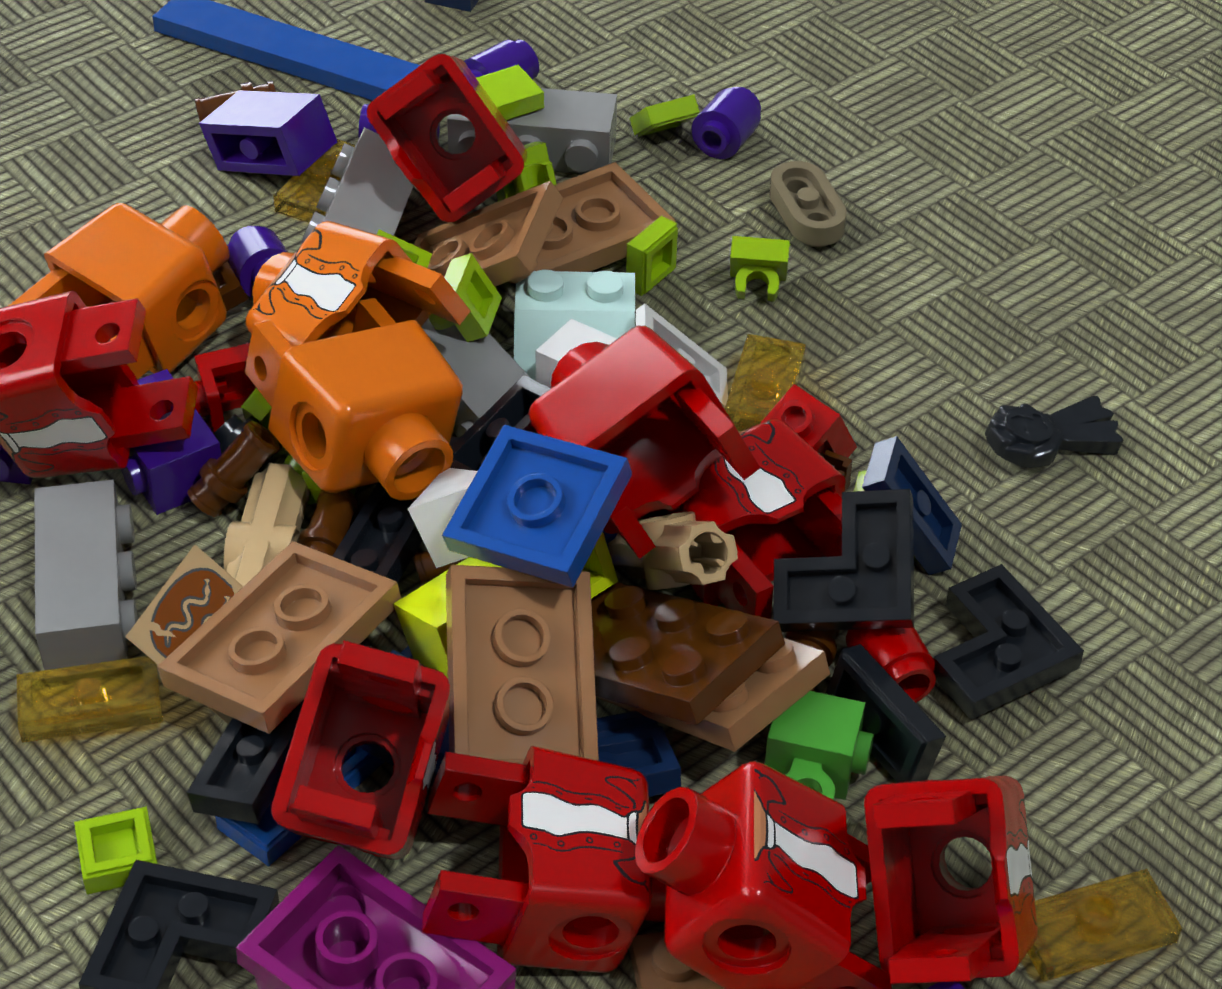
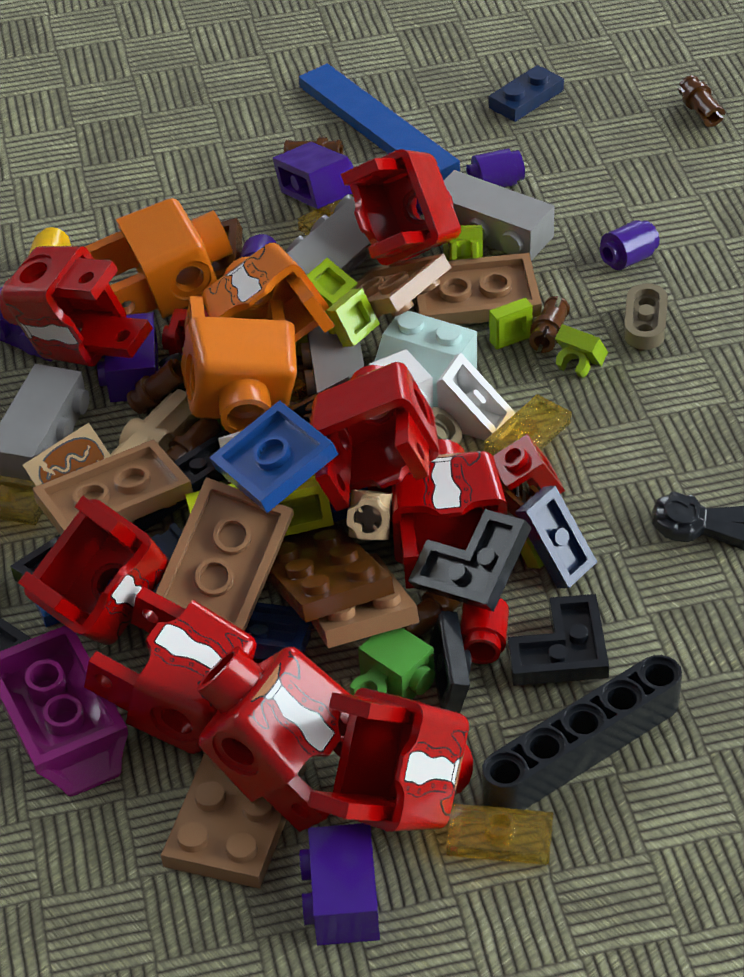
camera: 30 degrees right, 0 degrees up
(513, 92) = (476, 186): lime tile -> none
(664, 115) = (587, 228): lime tile -> none
(698, 247) = (546, 326): none -> reddish brown pin
(1111, 755) = (582, 734): none -> black beam

